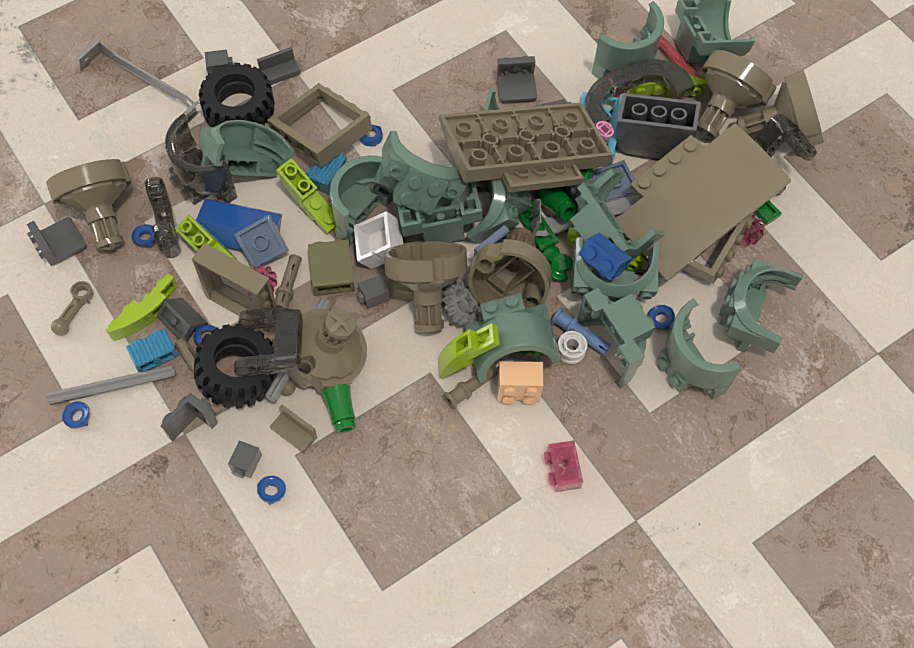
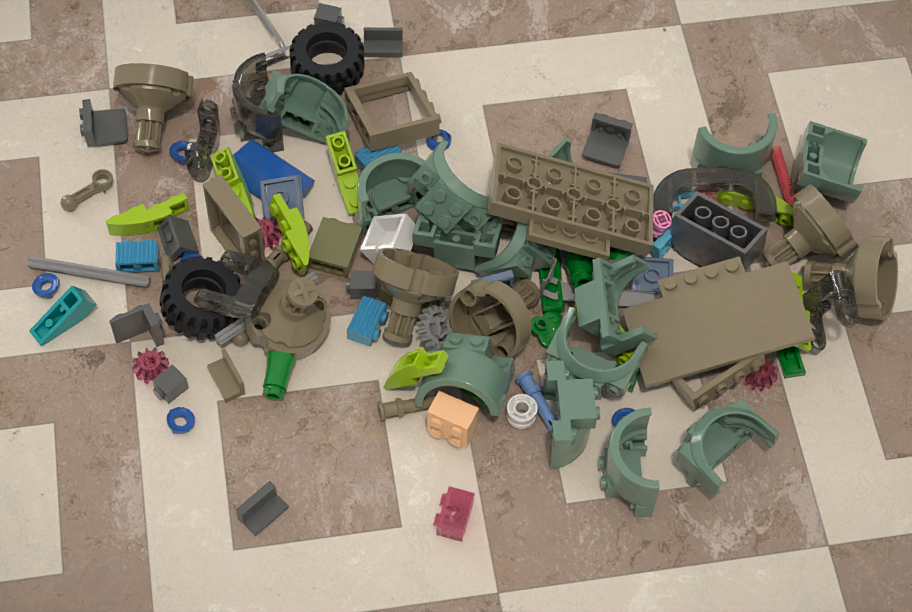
camera: 25 degrees right, 5 degrees down
(108, 437) = (64, 314): none -> teal slope
(214, 443) = (149, 364): none -> clear pink gear
(295, 275) = (295, 236): none -> lime slope
(390, 540) = (261, 509): none -> dark grey panel
(394, 323) = (367, 321): none -> dark azure brick
(604, 256) = (584, 333): blue brick -> none

